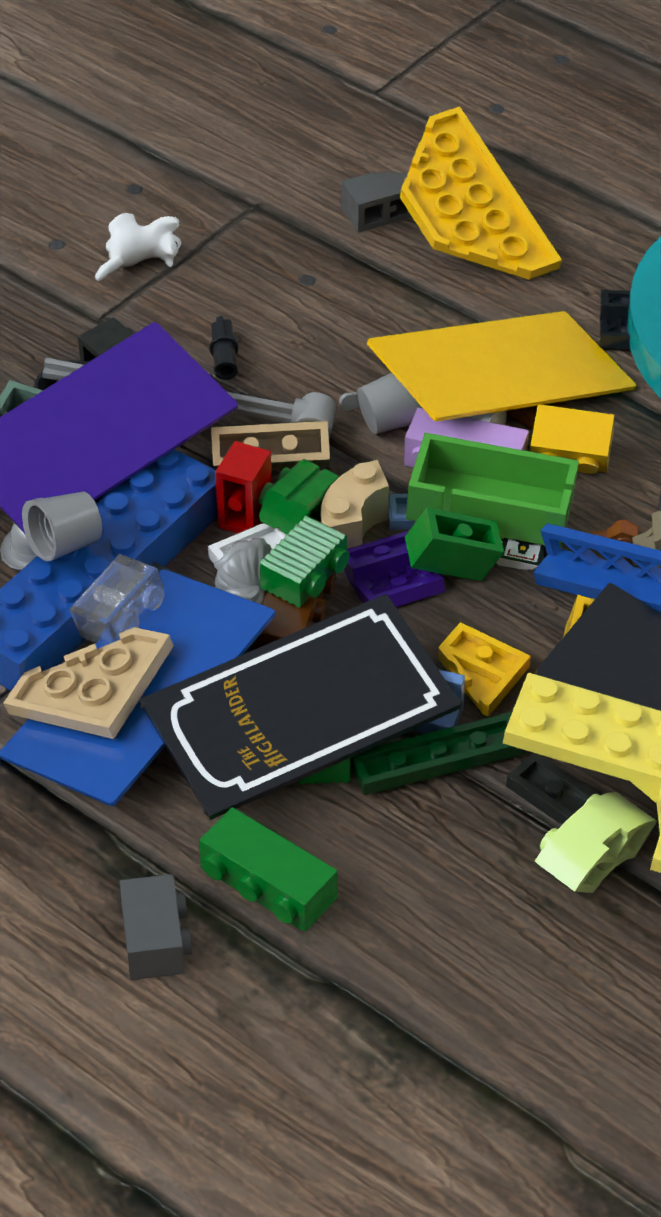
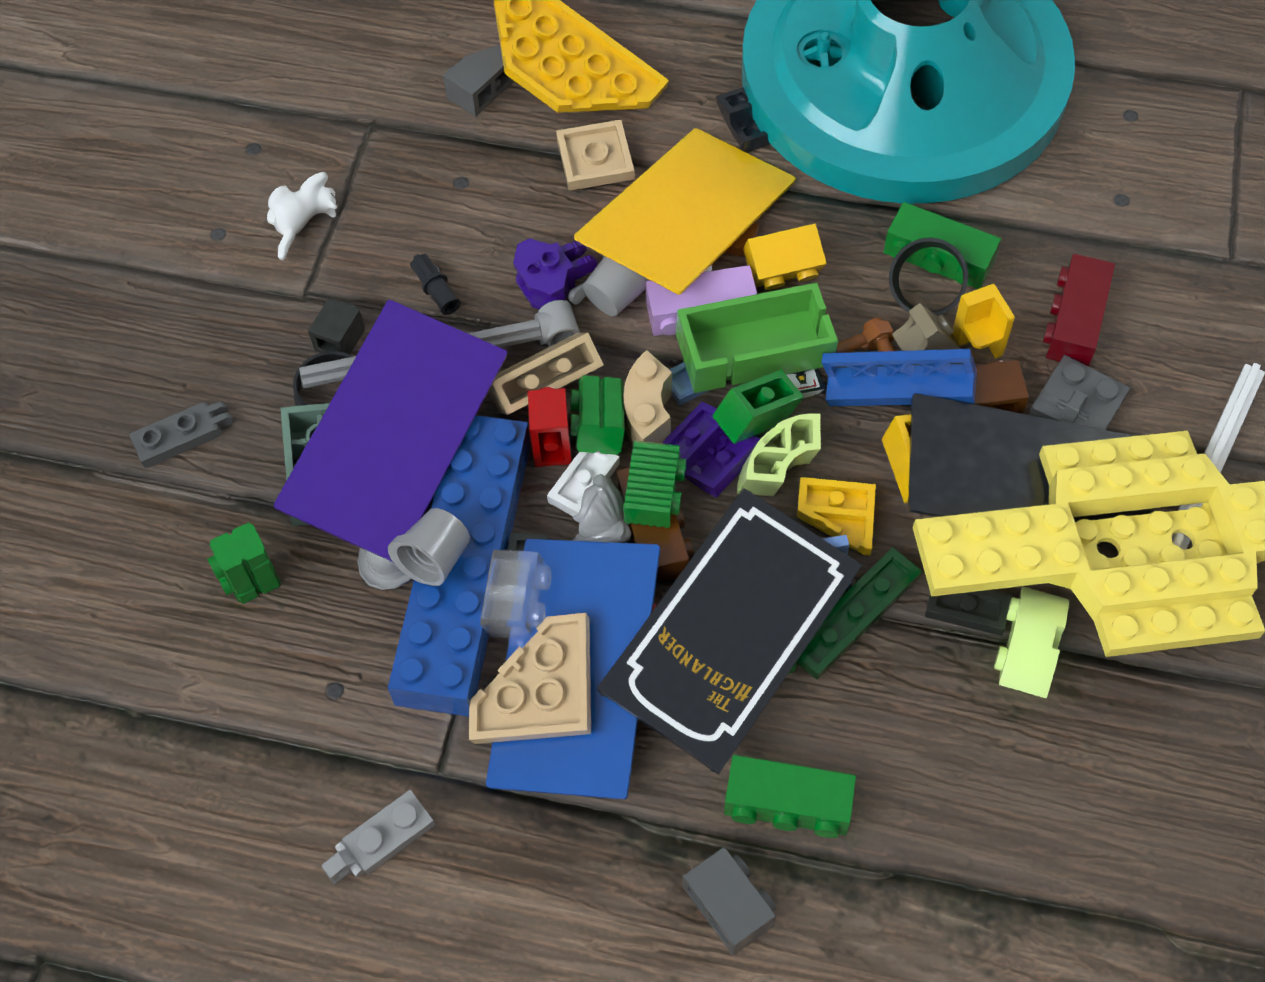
camera: 25 degrees left, 15 degrees up
(336, 367) = (549, 270): none -> dark purple hinge
(446, 296) = (595, 155): none -> tan plate
(450, 592) = (783, 447): none -> yellowish green brick

